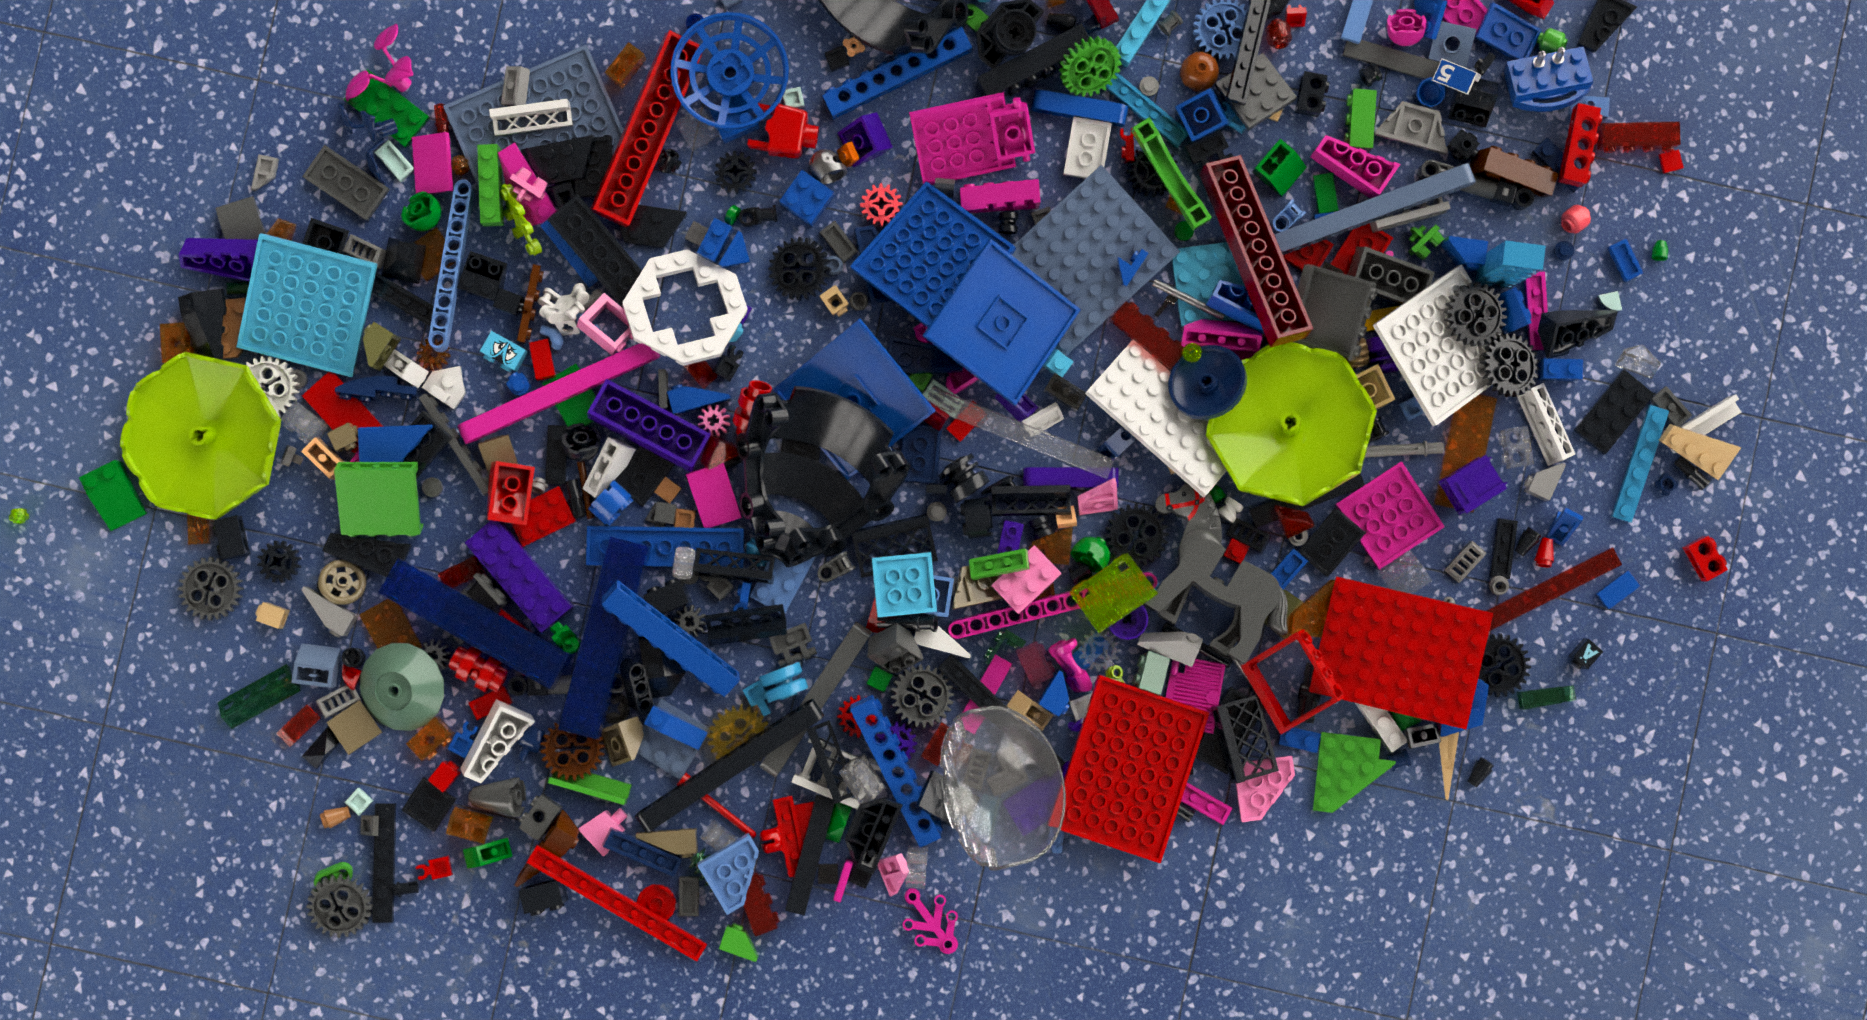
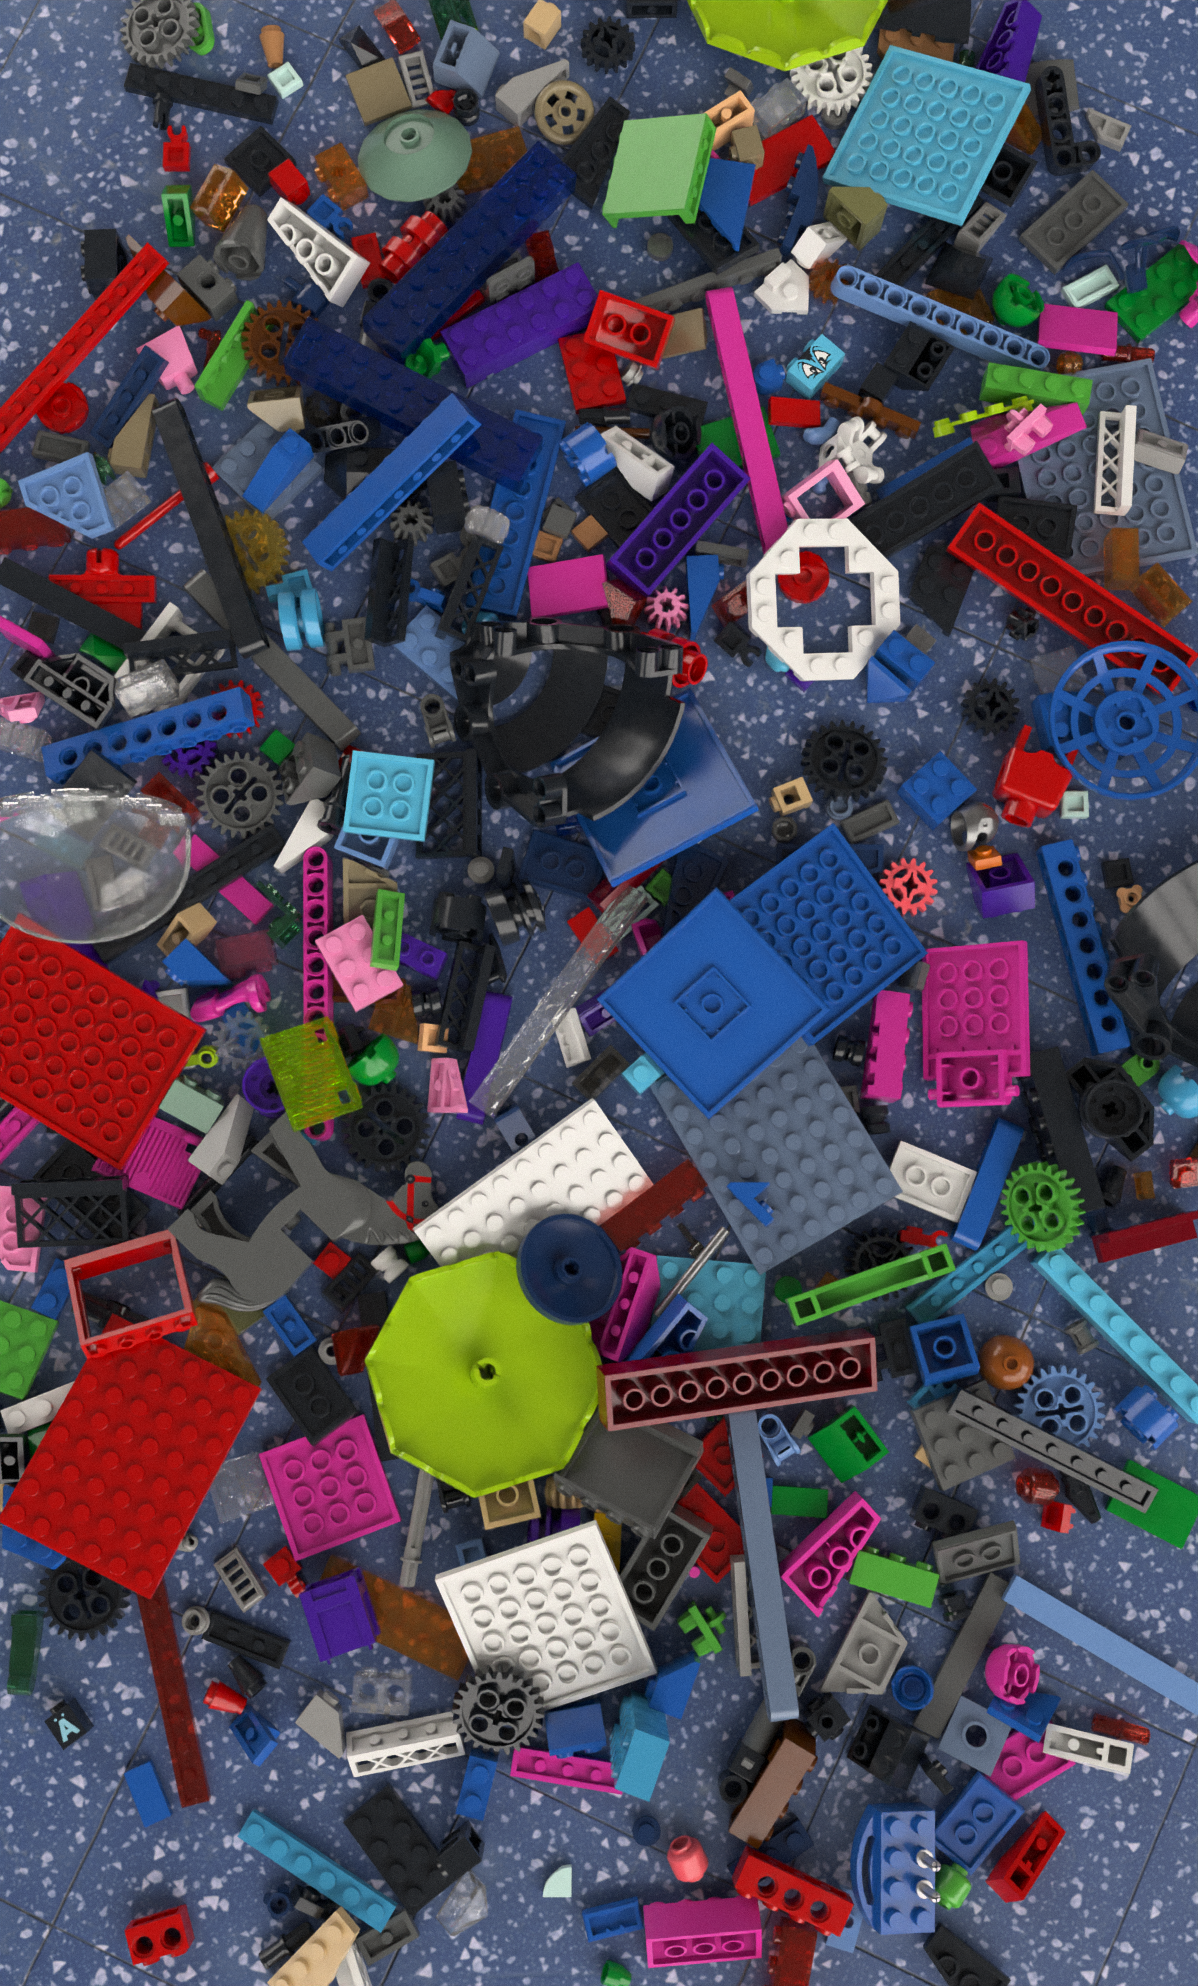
camera: 105 degrees right, 5 degrees down
(270, 207) = (1061, 122): none -> black beam
(560, 160) = (1051, 484): black wing -> none
(585, 803) = (213, 341): none -> clear red bar
(606, 98) = (1121, 559): none -> clear orange brick
(668, 318) = (809, 583): none -> red tile
(732, 215) = (933, 691): green tile -> none
(759, 215) = (926, 726): black connector -> none
(1051, 194) = (875, 1119): none -> black wheel
(1193, 357) = (609, 1258): clear neon green plate -> none
(1273, 201) = (802, 1424): none -> dark grey plate
(1332, 66) = (976, 1552): none -> dark grey tile
(1450, 533) = (284, 1569): none -> red plate
(1455, 76) = (927, 1728): blue panel -> none
(1488, 324) = (561, 1690): black gear -> none
(1571, 328) = (532, 1808): black wedge -> none
(1606, 370) = (460, 1852): none -> black brick
(1619, 199) = (702, 1931): none -> dark pink slope
(1661, 463) = (310, 1902): none -> black plate

